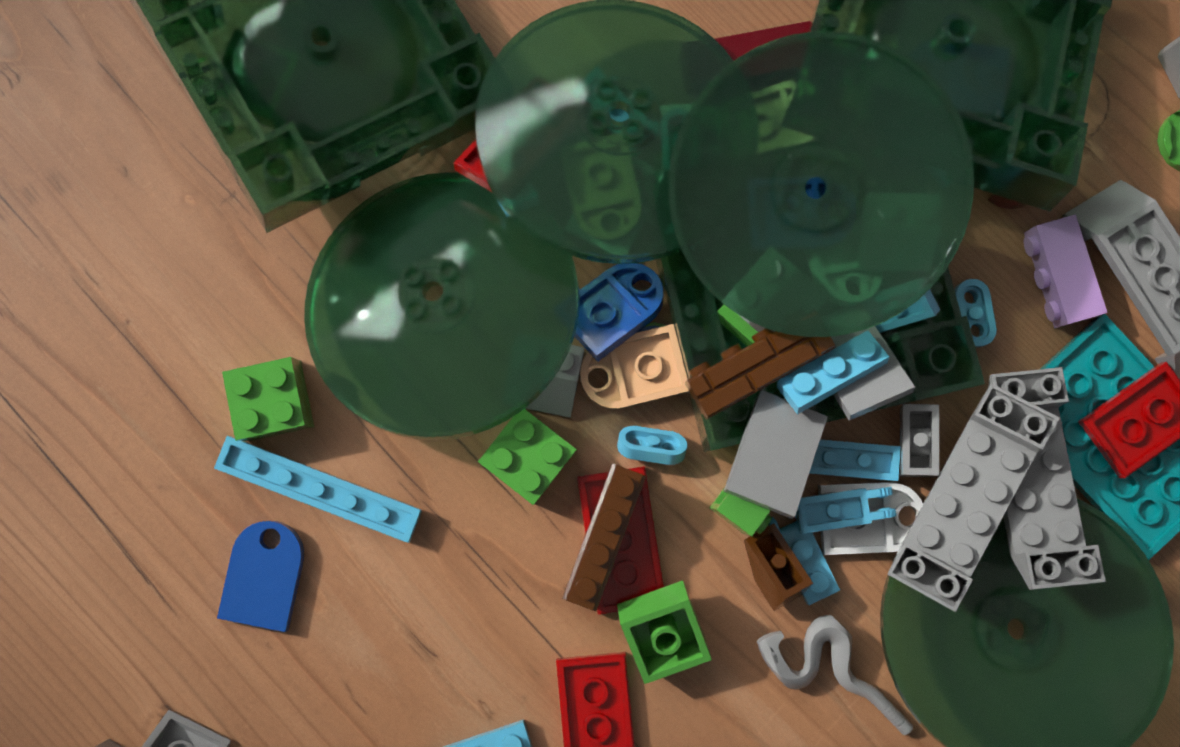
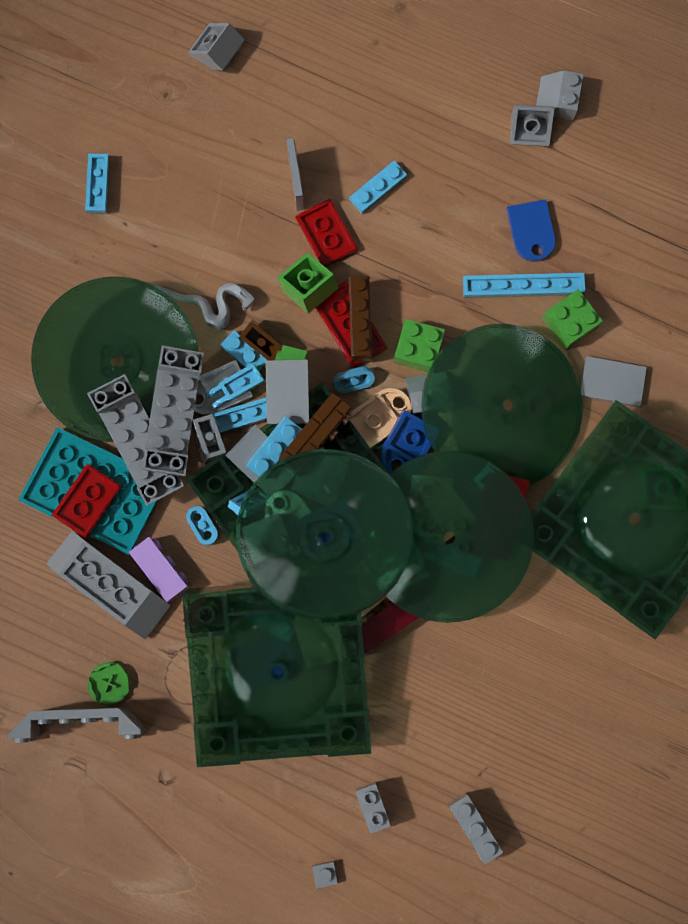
camera: 160 degrees right, 5 degrees down
(252, 279) = (612, 381): none -> light grey tile

